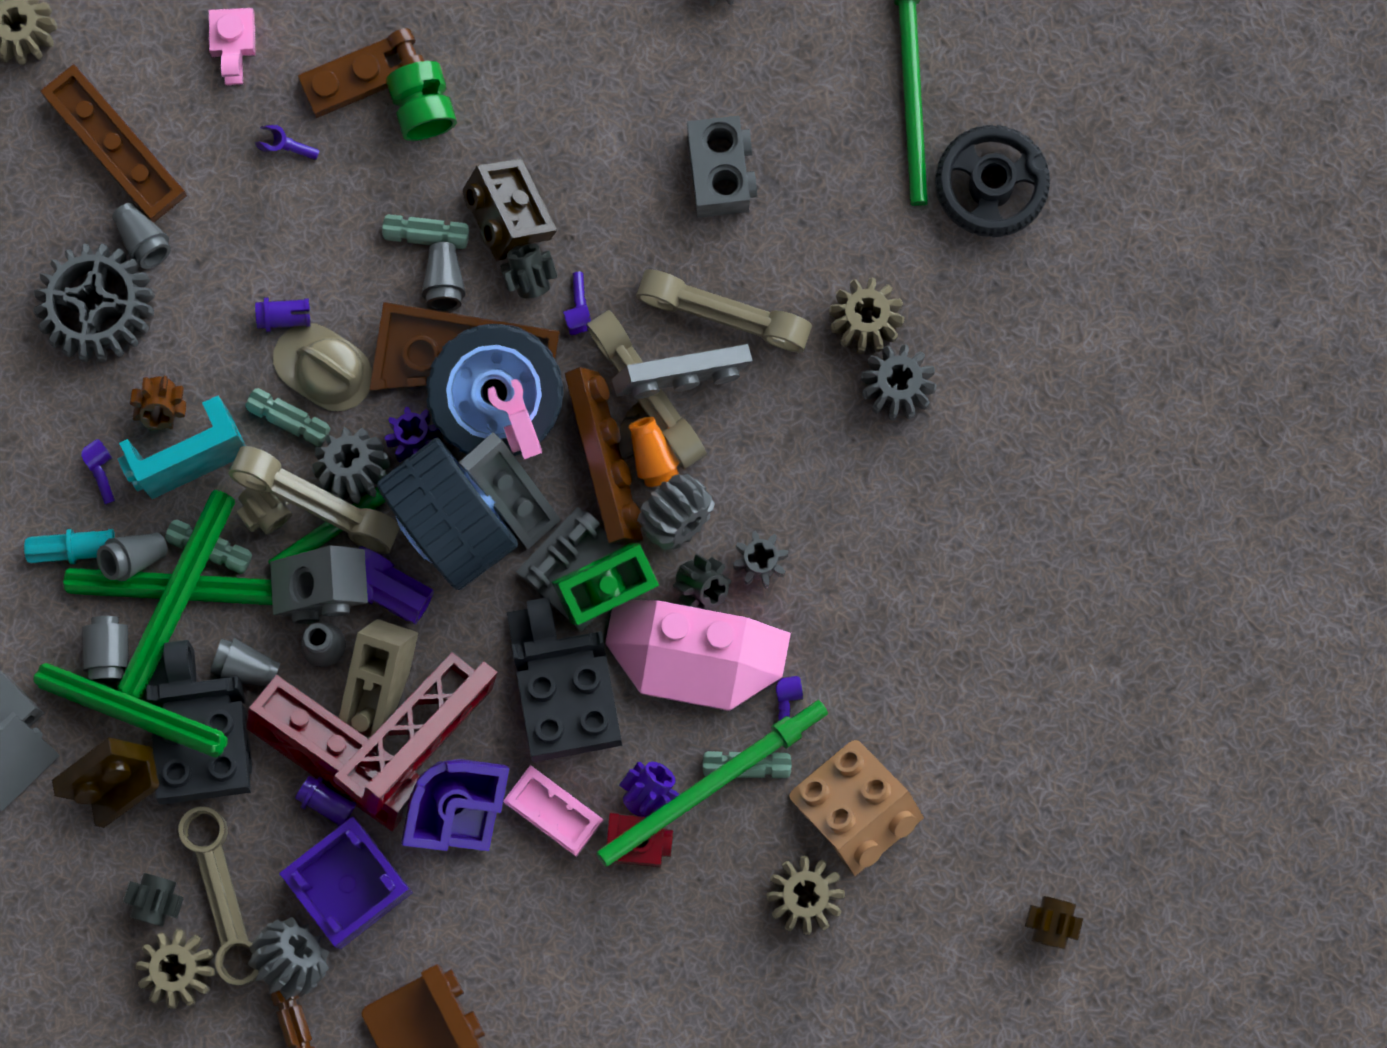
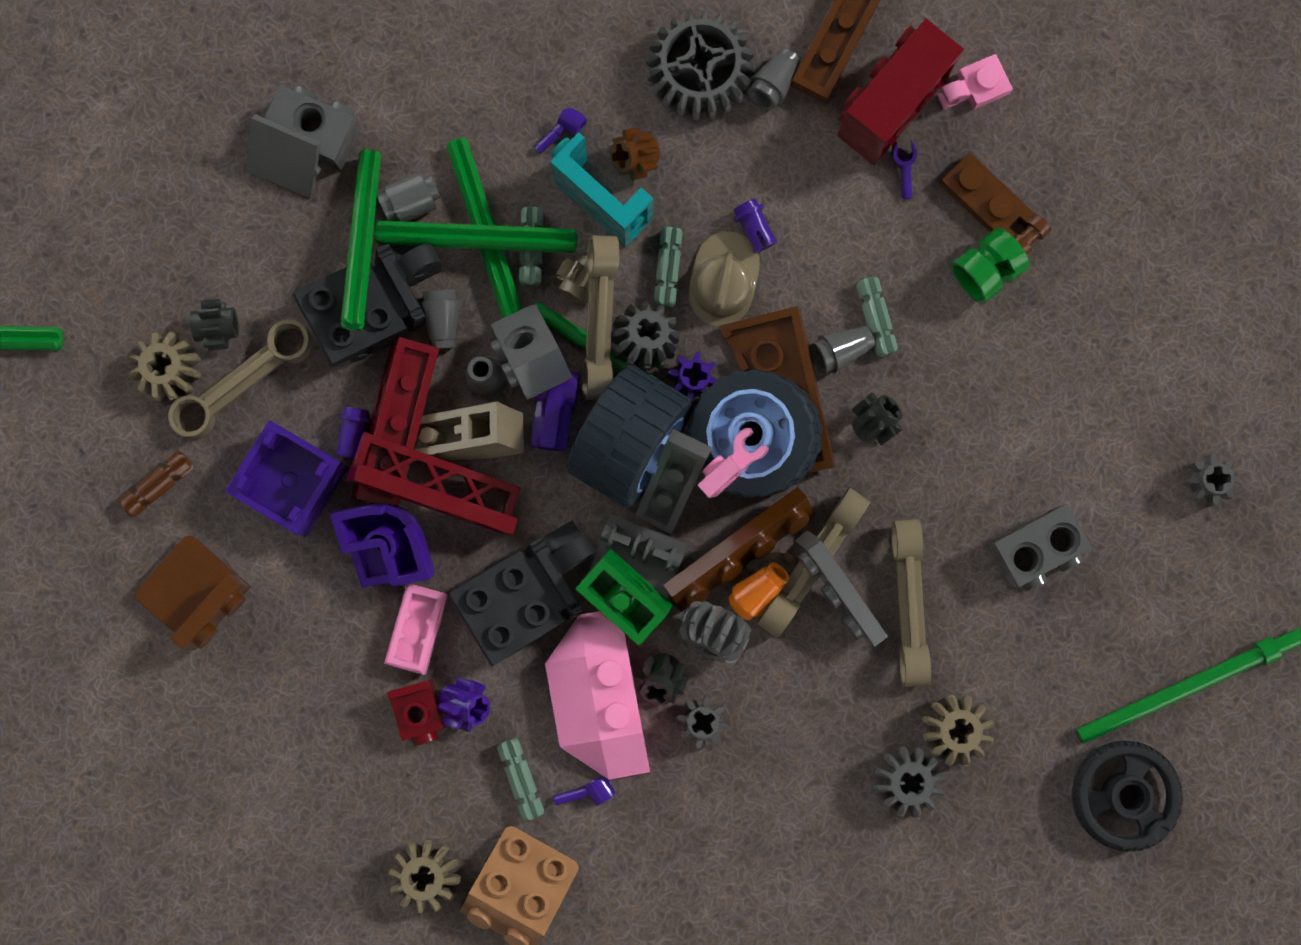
camera: 65 degrees right, 5 degrees up
(65, 546) = (486, 133): teal axle -> none
(110, 779) = (298, 248): dark brown bracket -> none
(128, 555) = (495, 184): dark grey cone -> none
(207, 118) = (898, 90): none -> dark red brick
(288, 958) = (204, 457): dark grey gear -> none
(507, 206) = (926, 378): dark brown bracket -> none
(579, 316) = (855, 478): dark purple hand -> none
(783, 733) = (557, 802): green bar -> none

